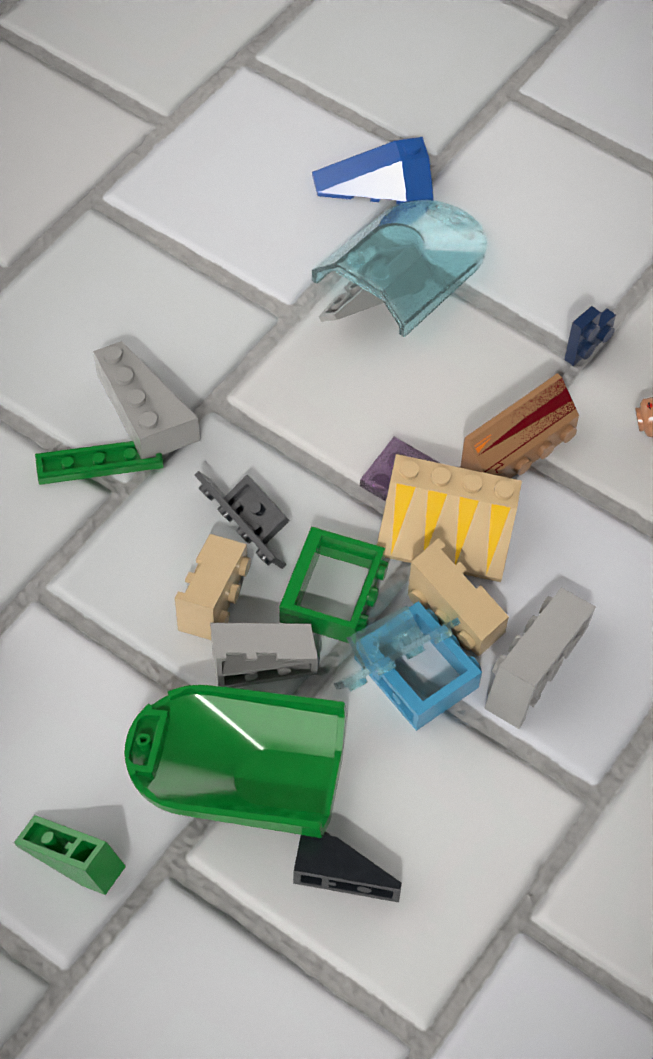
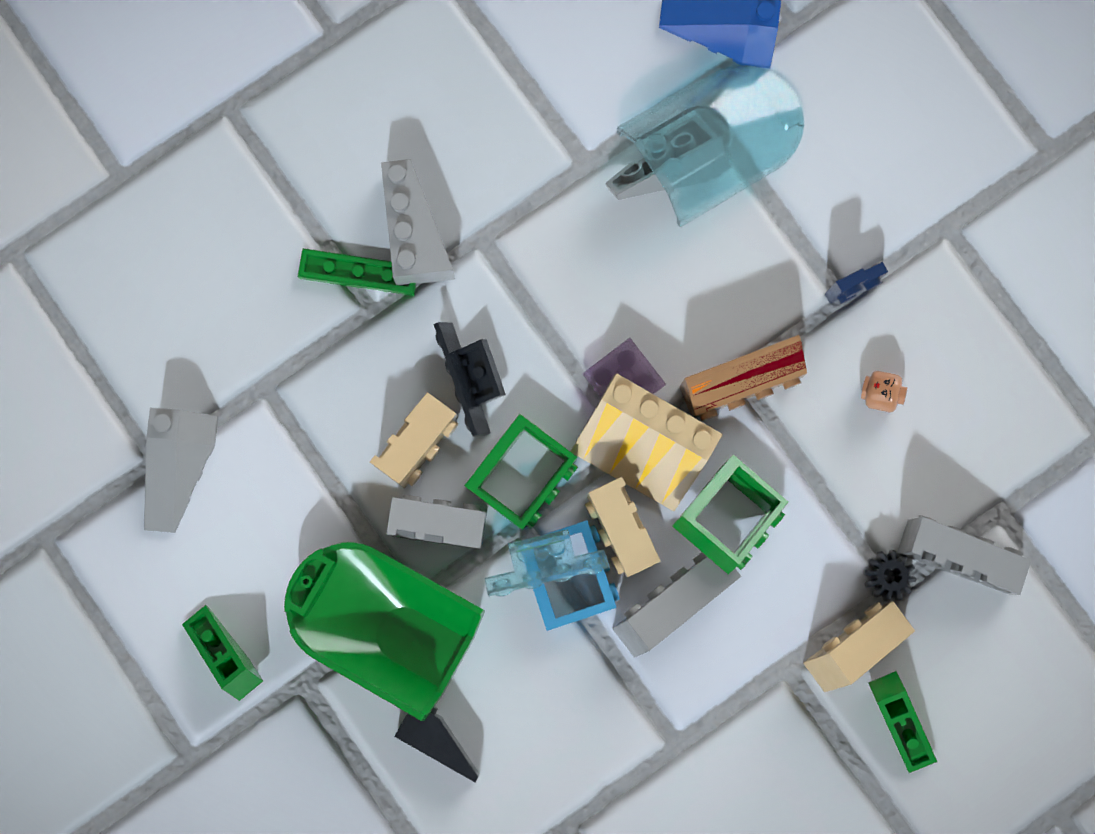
camera: 20 degrees right, 25 degrees up
(572, 533) = (756, 490): none -> green window

